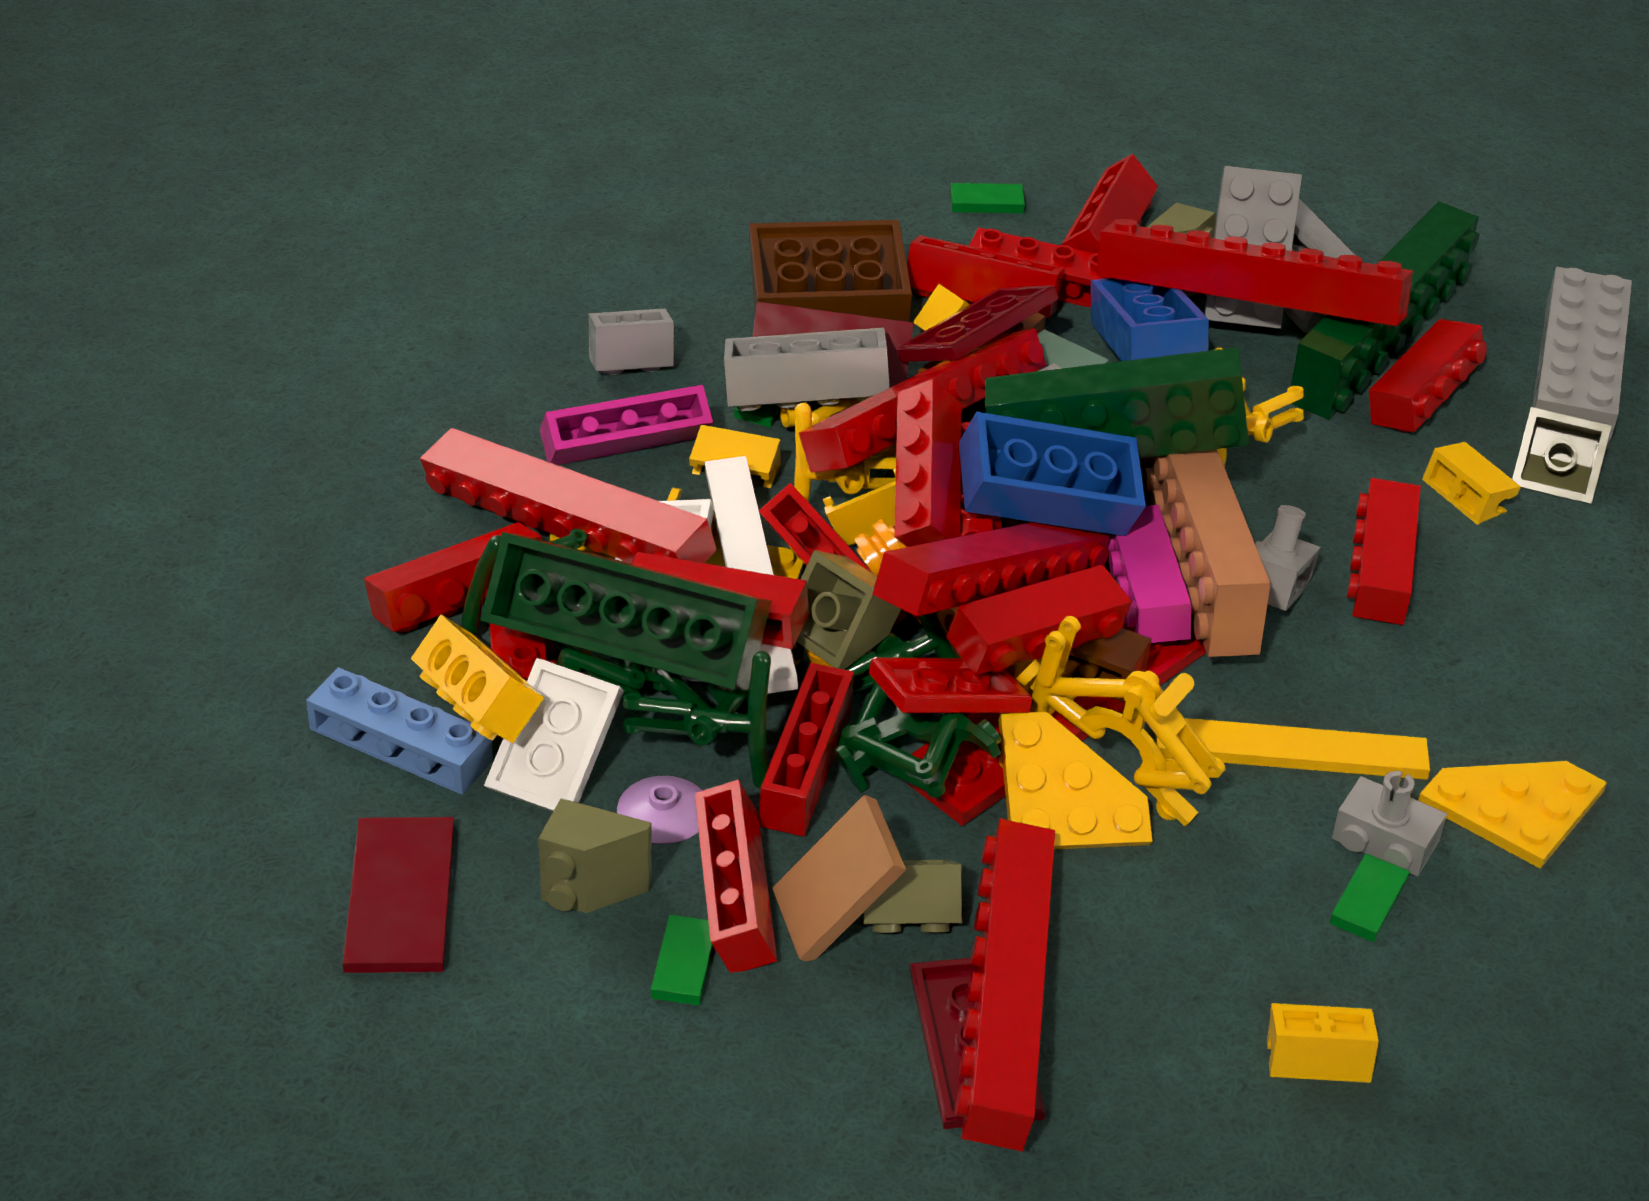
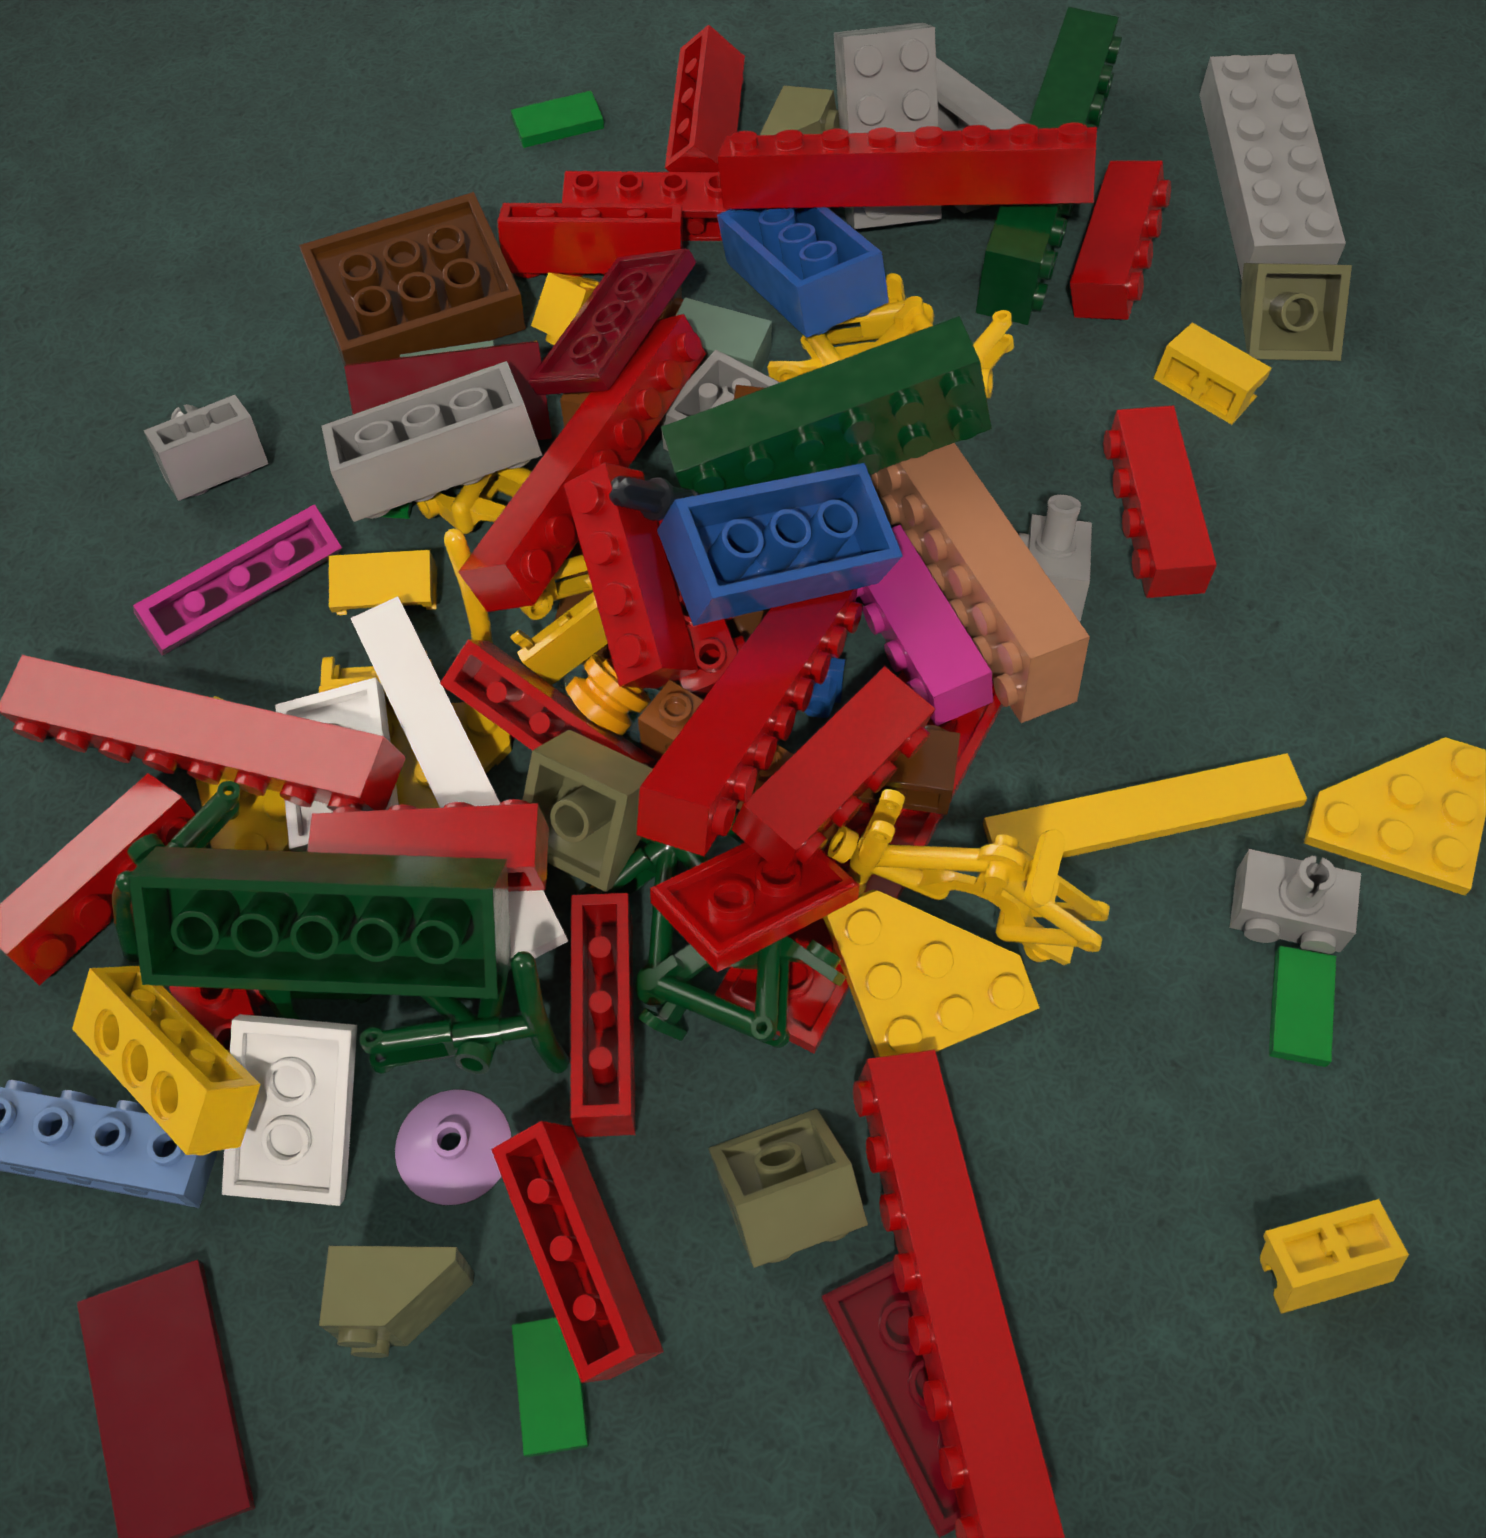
camera: 15 degrees left, 20 degrees up
(838, 878) = (709, 1227): medium nougat tile -> none
(953, 408) = (649, 497): none -> black axle

